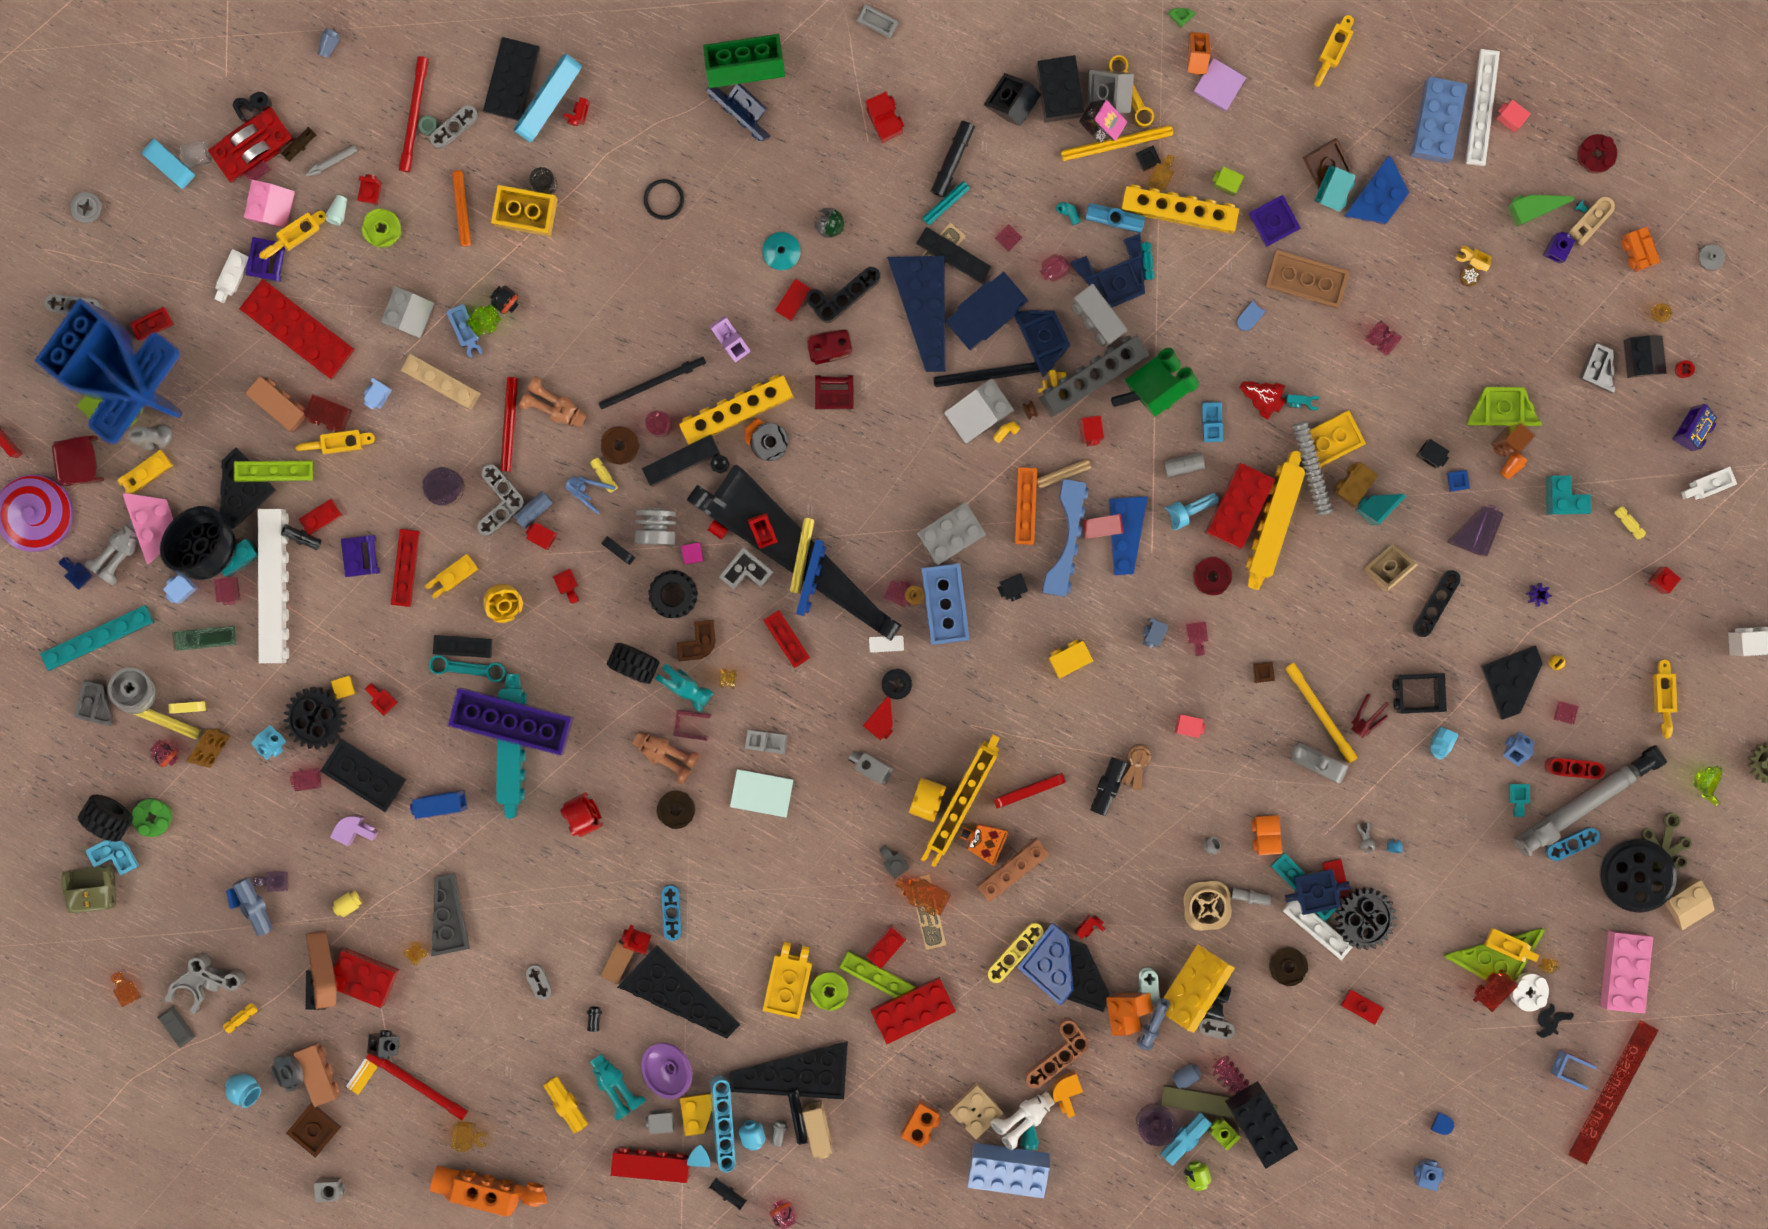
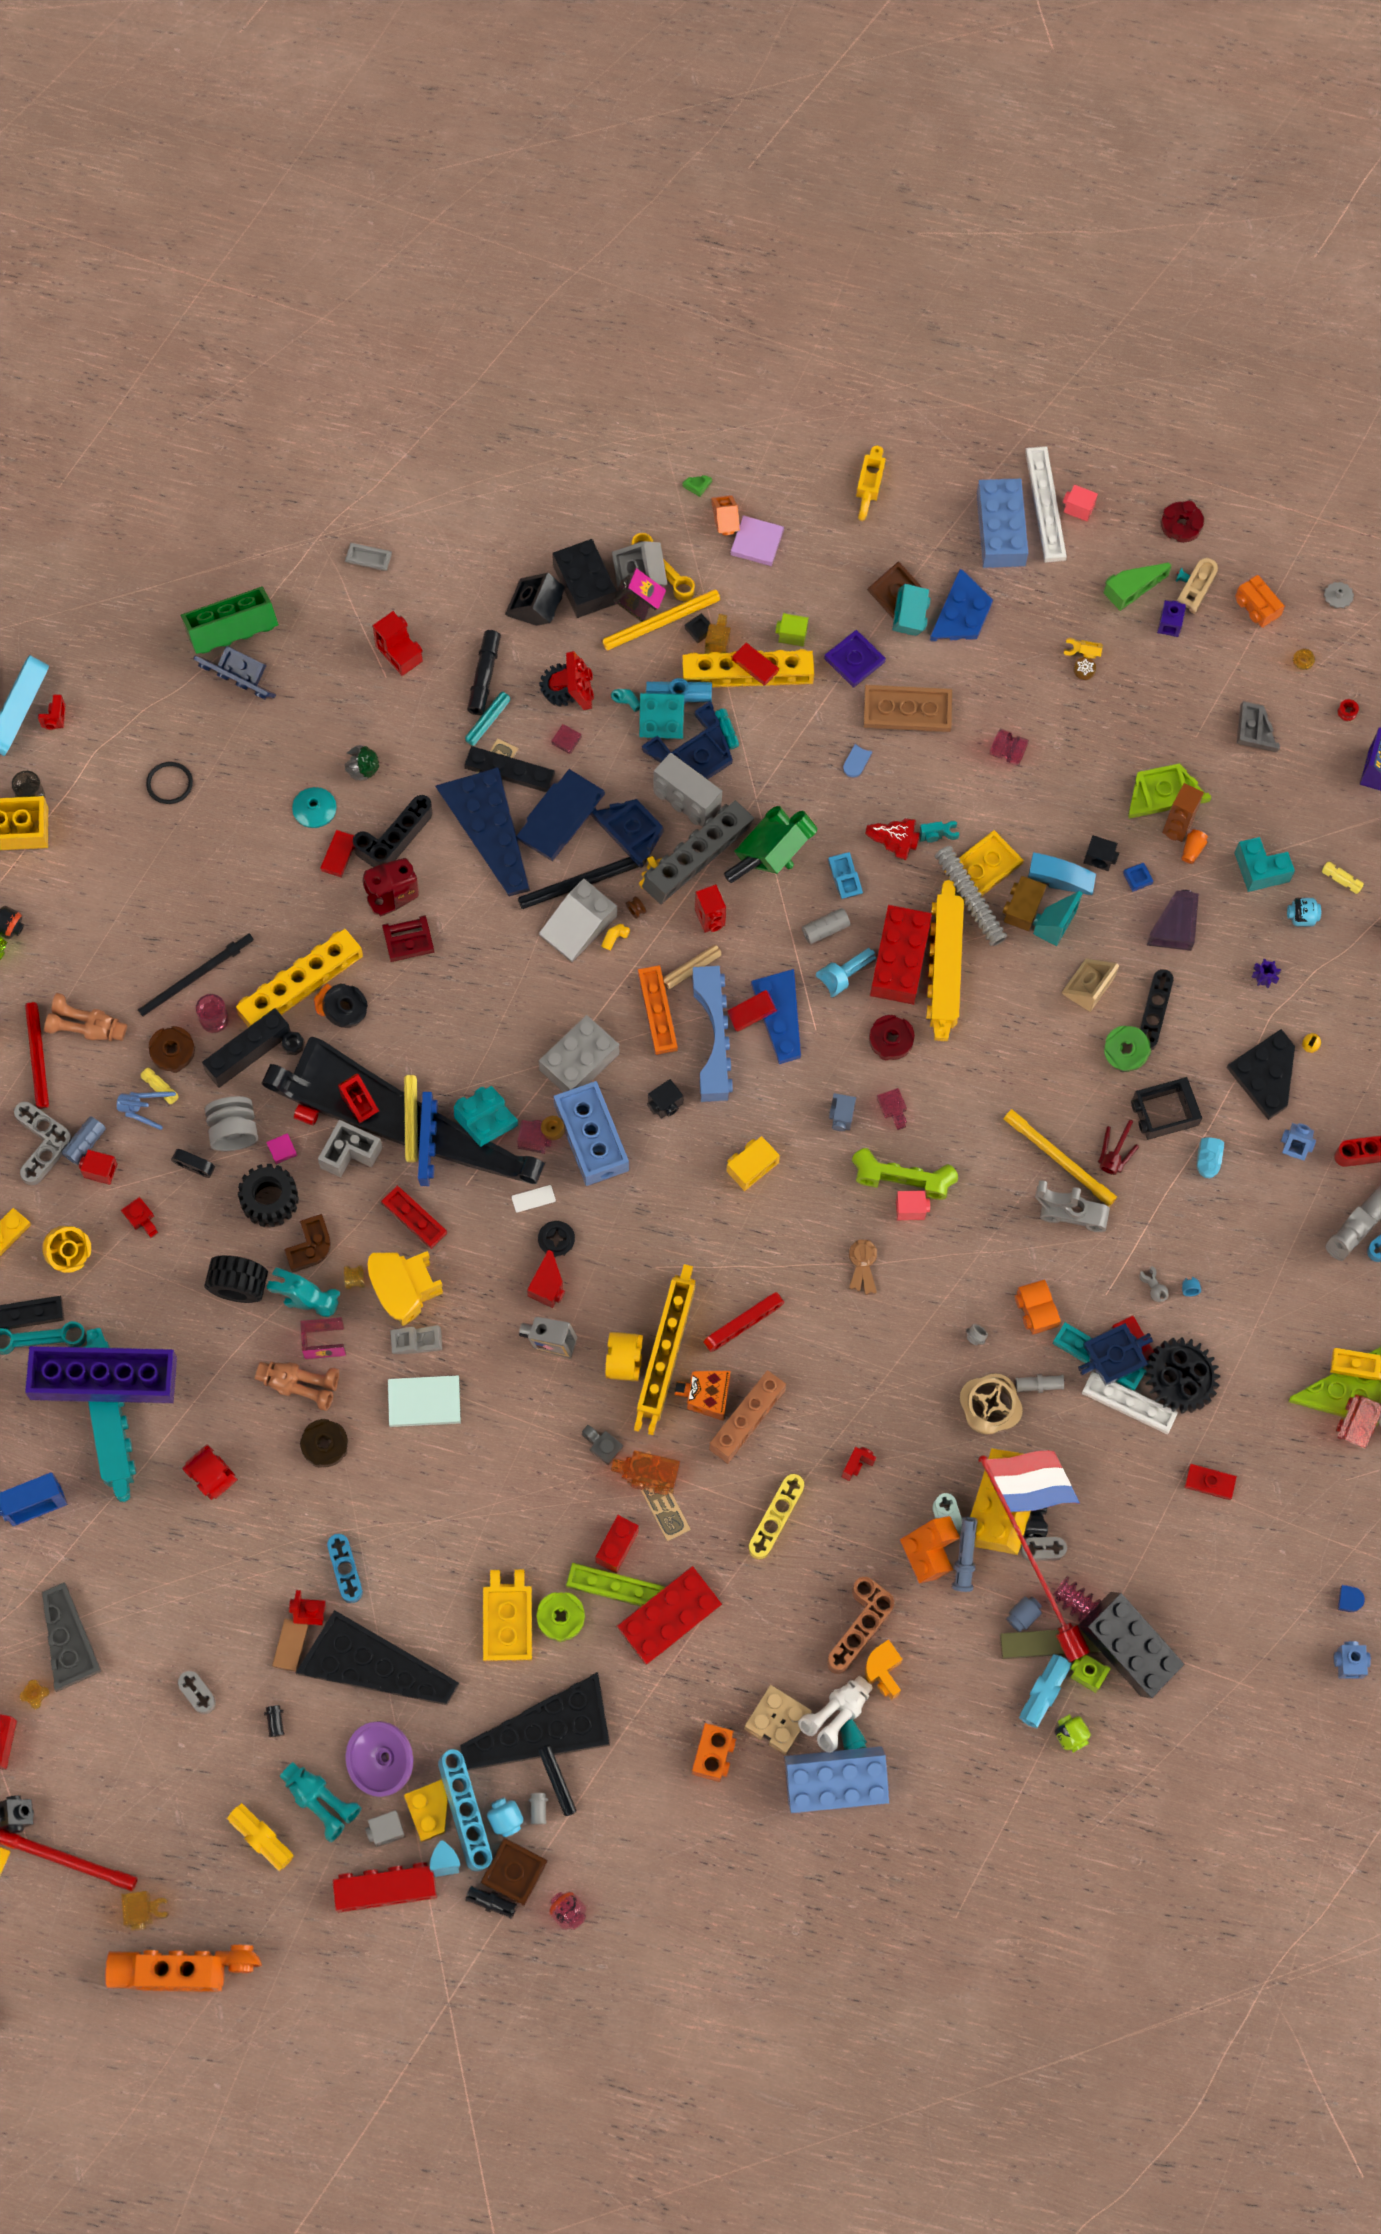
camera: 20 degrees left, 20 degrees down
(729, 339) = (274, 907): lavender brick -> none
(750, 1175) = (514, 1871): none -> reddish brown plate
(762, 697) = (402, 1283): none -> yellow piece
(817, 1129) = (586, 1786): tan window -> none
(862, 567) = (484, 1115): none -> teal plate
(1022, 189) = (568, 682): none -> red plate
(1050, 964) = (822, 1515): plate -> none
(1054, 267) = (625, 755): clear pink head -> none
(1087, 980) = (862, 1527): black plate -> none
(1094, 238) = (661, 715): none -> teal plate
(1108, 786) = (835, 1296): black piece -> none
(1149, 1133) = (998, 1667): brick -> none
(1186, 211) = (755, 664): none -> red tile
(1212, 712) = (934, 1183): none -> lime plate
(1217, 987) = (1031, 1484): none -> flag
(1263, 672) = (980, 1129): reddish brown tile -> none
(1297, 972) = (1104, 1467): dark brown plate -> none
(1394, 465) = (1061, 874): none -> dark azure slope
(1399, 644) = (1128, 1035): none -> bright green plate
(1519, 795) = (1317, 1196): teal plate -> none
(1566, 712) = (1339, 1094): clear pink tile -> none
(1588, 547) = (1304, 912): none -> medium azure head
(1644, 356) = (1299, 705): black slope -> none

